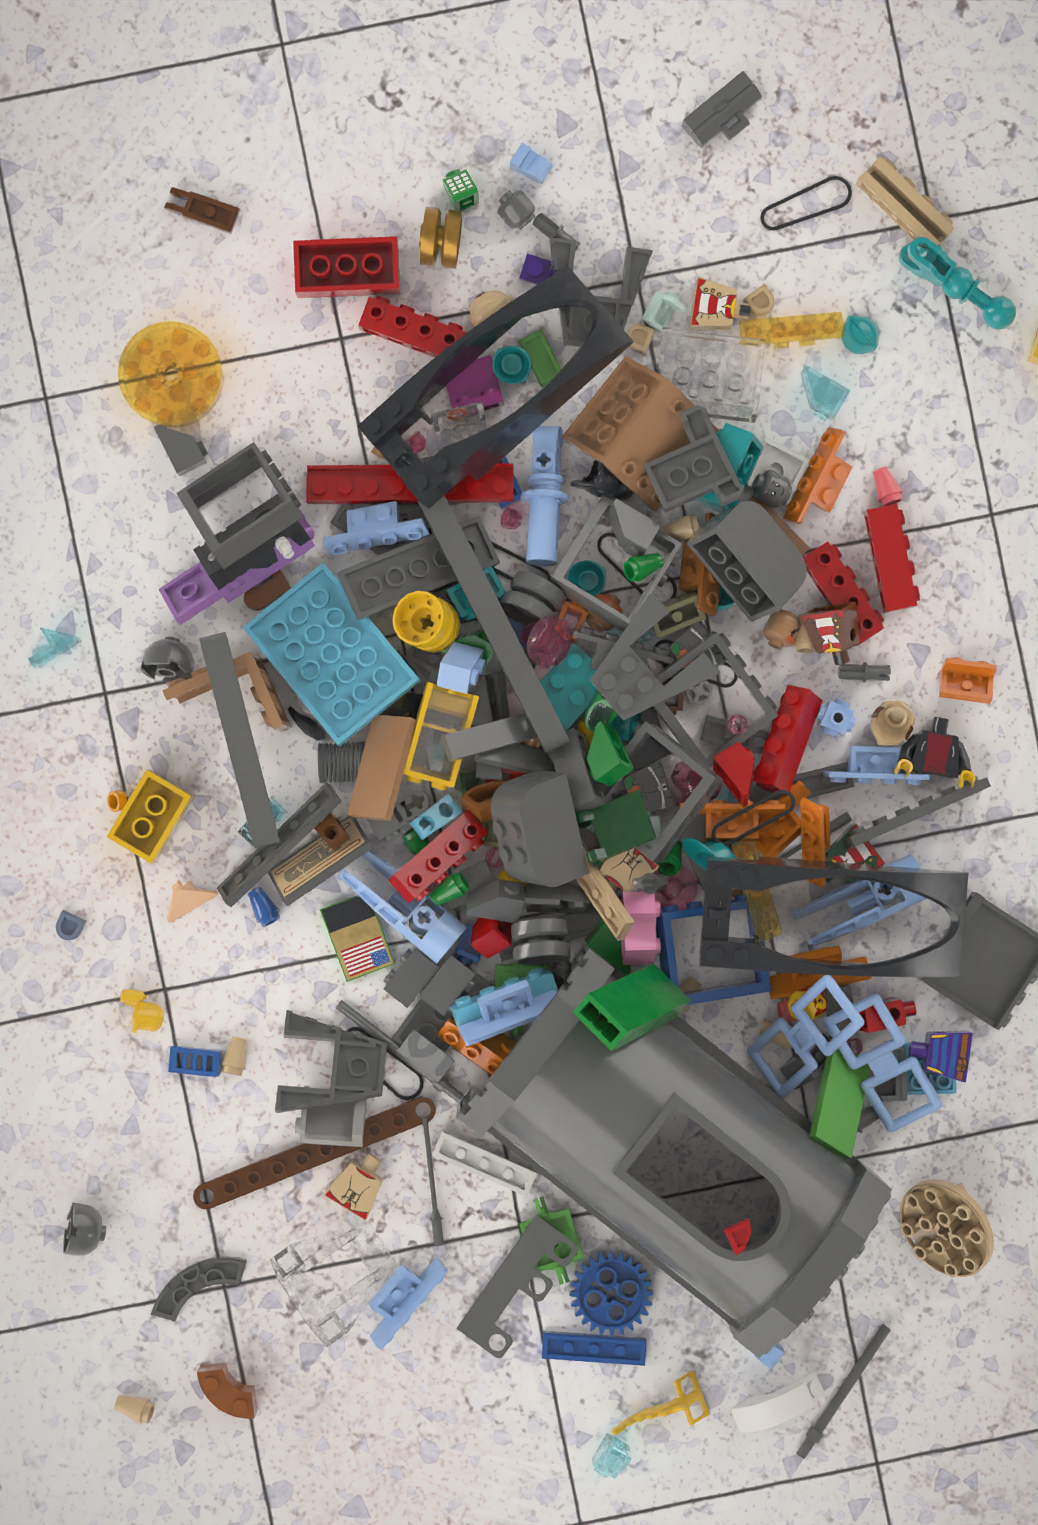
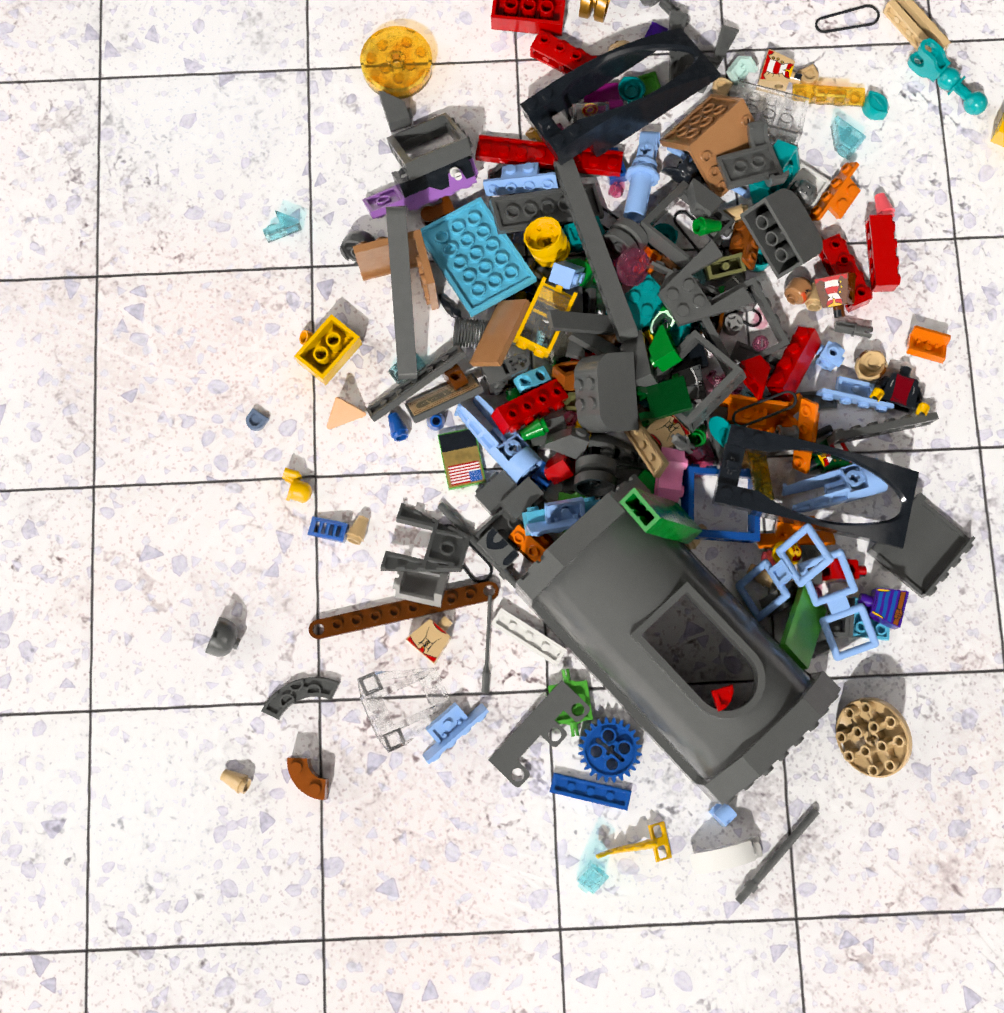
camera: 10 degrees right, 10 degrees down
(315, 900) = (436, 427): none -> blue cone
(788, 843) = (788, 431): none -> dark grey bush

